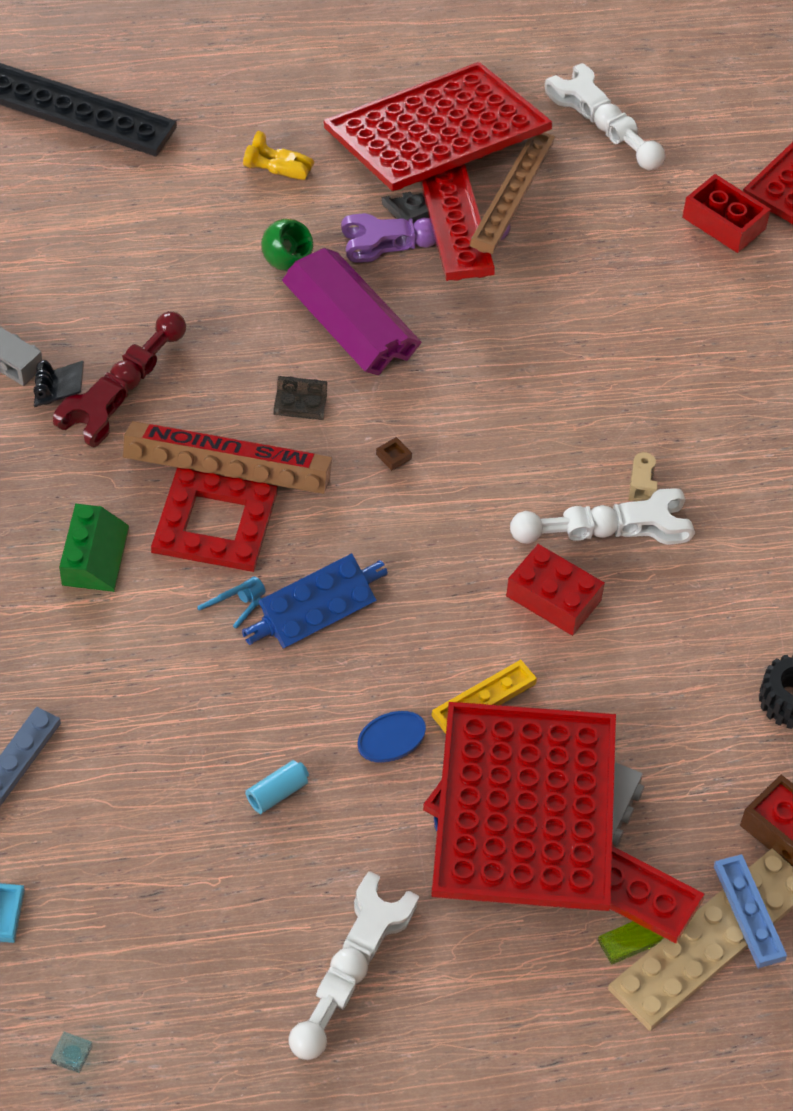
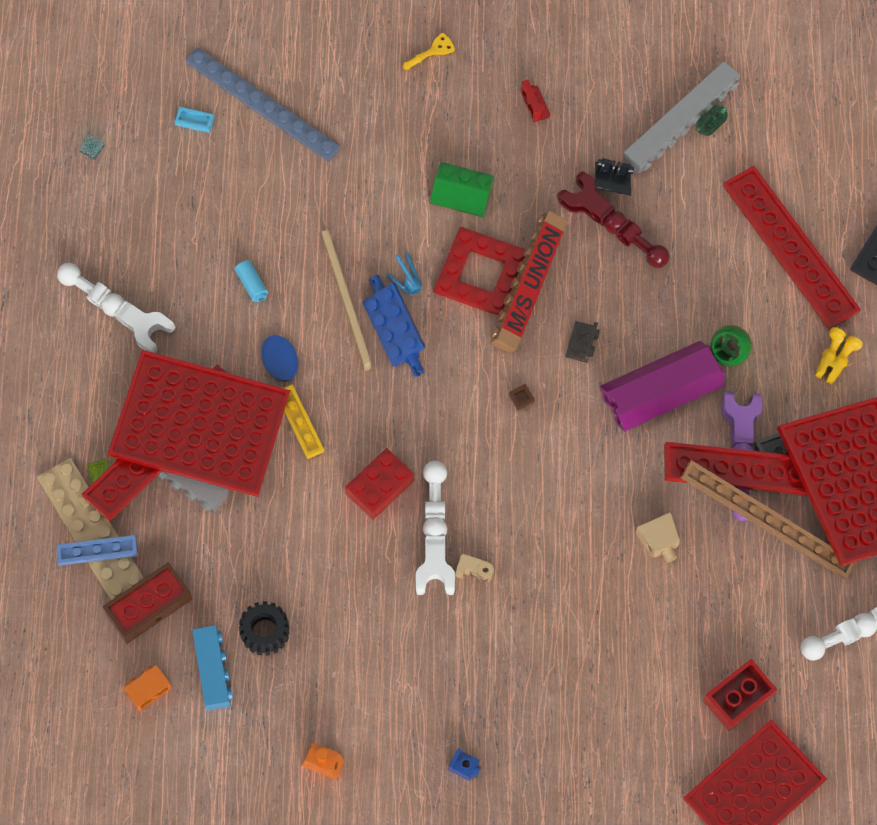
camera: 100 degrees right, 15 degrees up
(131, 209) = (791, 247): none -> red plate
(286, 665) = (346, 300): none -> tan tile
(549, 300) = (660, 537): none -> tan torso

